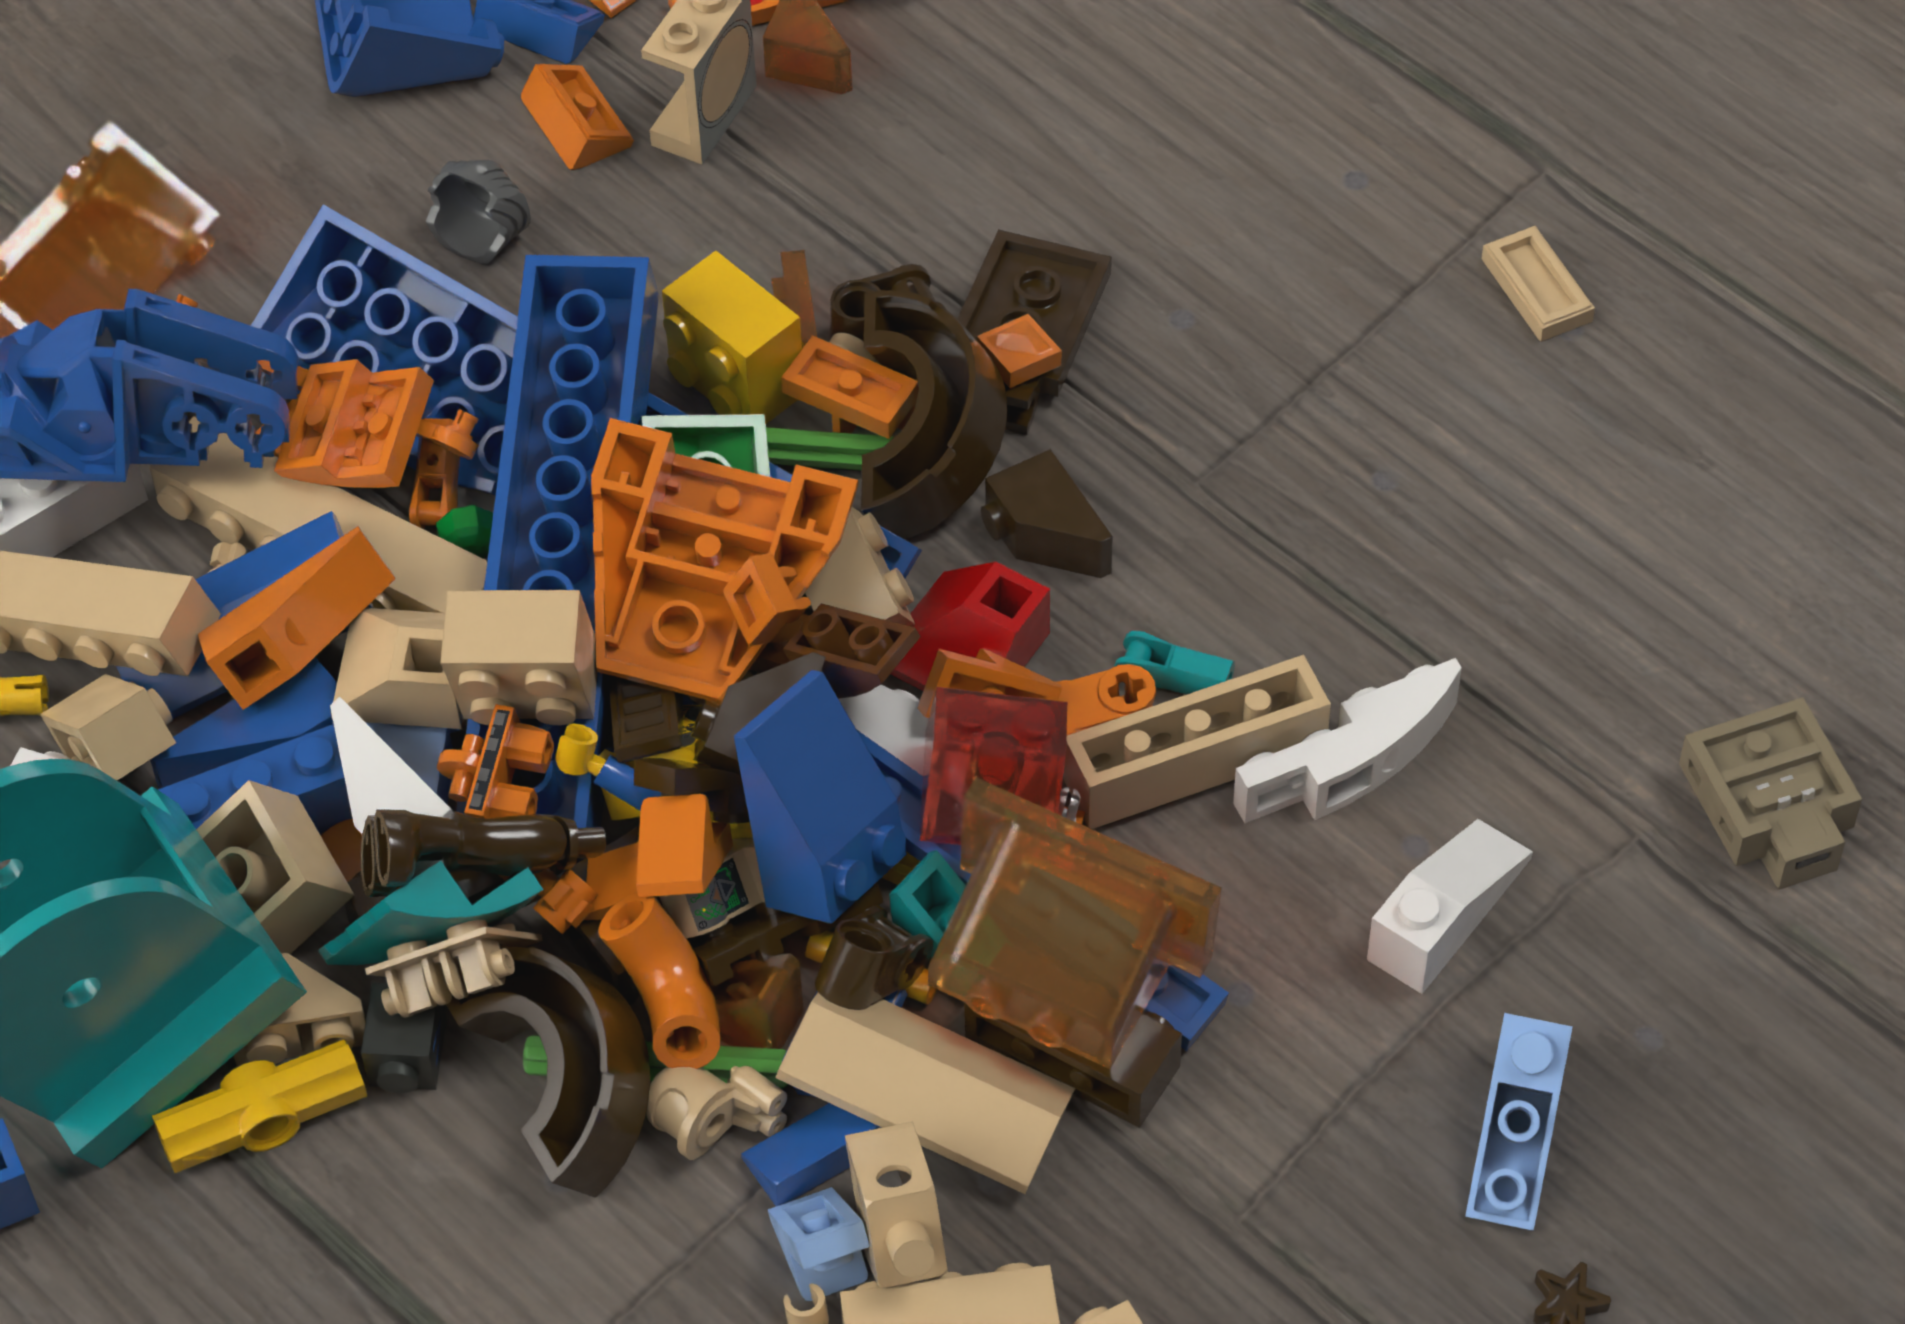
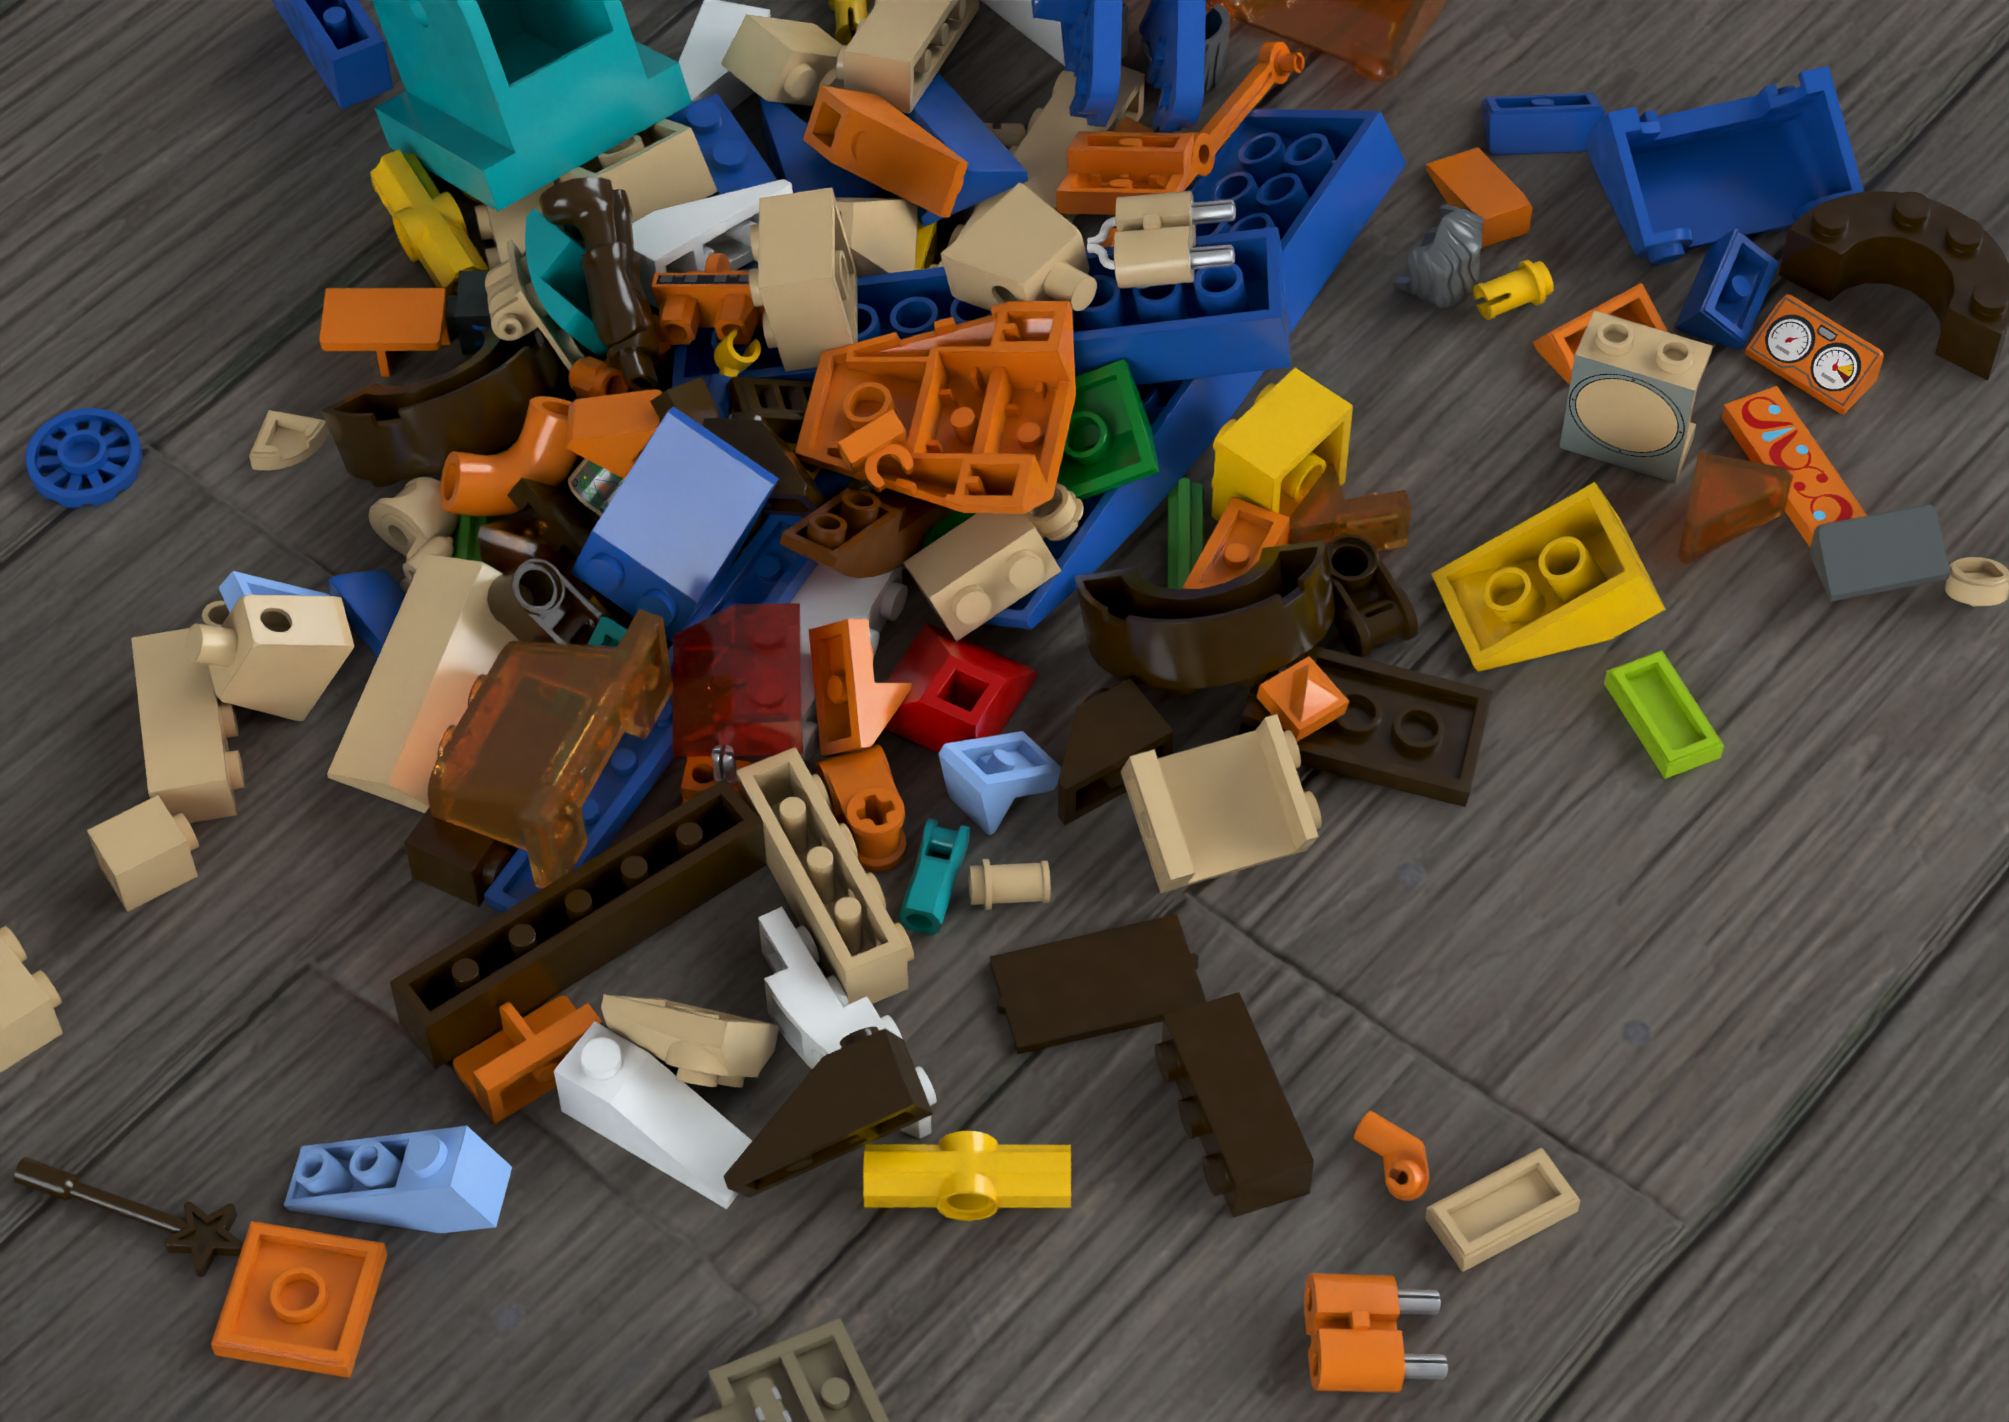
camera: 85 degrees right, 0 degrees up
(291, 127) = (1540, 122): none -> blue slope
(383, 181) = (1482, 188): none -> orange slope
(414, 1139) = (384, 321): none -> orange panel
(513, 154) = (1527, 284): none -> yellow pin
(527, 467) = (1019, 254): none -> tan torso
(534, 345) = (1158, 239): none -> tan piece
(542, 1258) = (287, 440): none -> tan tile
(886, 172) = (1549, 584): none -> yellow slope
(1026, 119) = (1663, 714): none -> lime tile
(1085, 604) = (993, 771): none -> light blue slope
(1120, 430) = (1221, 805): none -> tan panel
(1191, 620) = (1008, 883): none -> tan pin
(1255, 959) = (579, 922): none -> dark brown brick
(1295, 555) = (1096, 983): none -> dark brown piece
(1371, 1008) = (521, 1058): none -> orange panel
(1376, 846) = (699, 1041): none -> tan slope
(1442, 448) = (1234, 1105): none -> dark brown brick
(1476, 725) = (838, 1107): none -> dark brown slope
(1489, 343) = (1402, 1155): none -> orange arm
(1514, 653) = (967, 1176): none -> yellow piece
(1640, 1211) = (299, 1299): none -> orange tile
(1668, 386) = (1357, 1334): none -> orange piece

